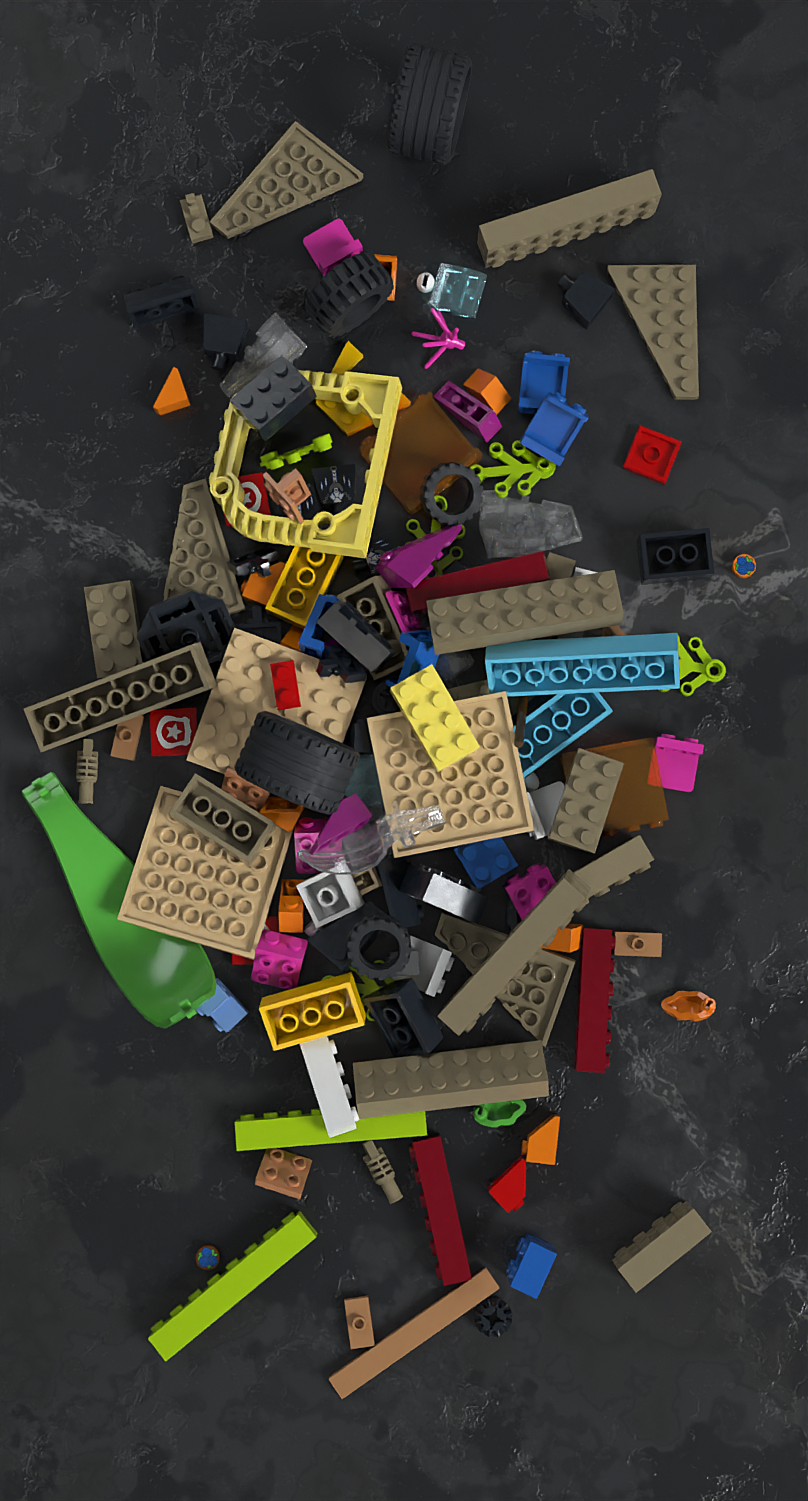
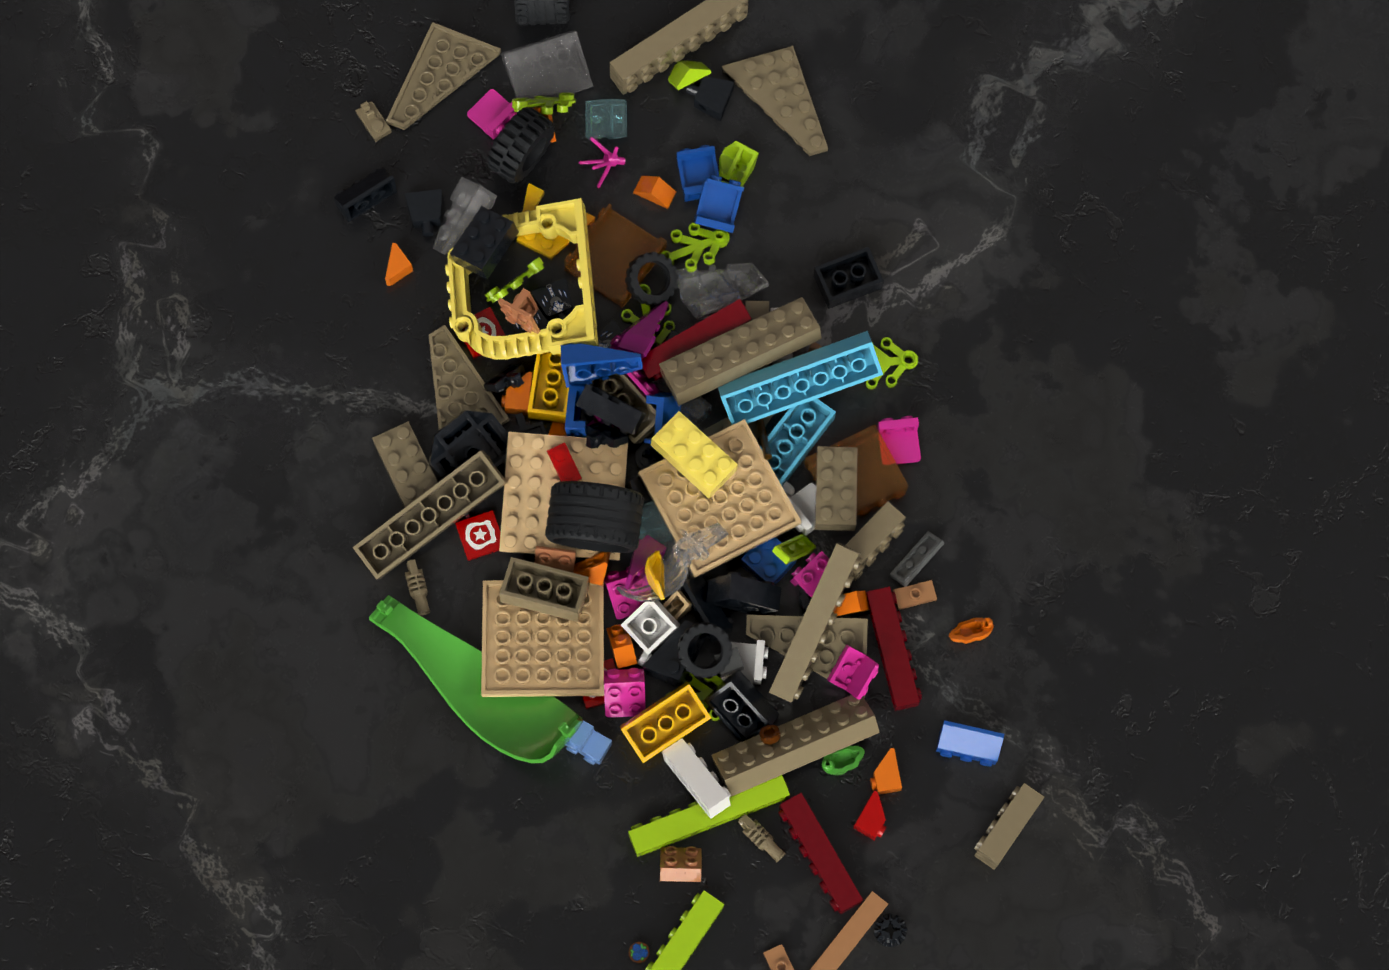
camera: 20 degrees left, 10 degrees down
(127, 738) = (442, 551): medium nougat plate -> none
(344, 574) = (587, 363): none -> blue wedge
(349, 843) = (655, 574): none -> yellow slope
(408, 213) = (548, 67): none -> clear slope
(415, 256) = (563, 102): none -> lime plant
(424, 1064) = (770, 734): none -> reddish brown tile
(430, 282) = (573, 120): white hinge -> none
(469, 411) = (644, 210): magenta slope -> none
(516, 856) = (794, 548): none -> lime tile
(531, 1265) = (908, 873): blue brick -> none
(541, 1020) = (853, 672): none -> dark pink bracket
(565, 262) = (687, 72): none -> lime slope
(590, 384) = (737, 162): none -> lime slope
(646, 1137) = (969, 743): none -> slope
(651, 455) = (804, 204): red tile -> none
(652, 904) = (916, 558): none -> dark grey tile
(743, 566) = (906, 270): tile -> none

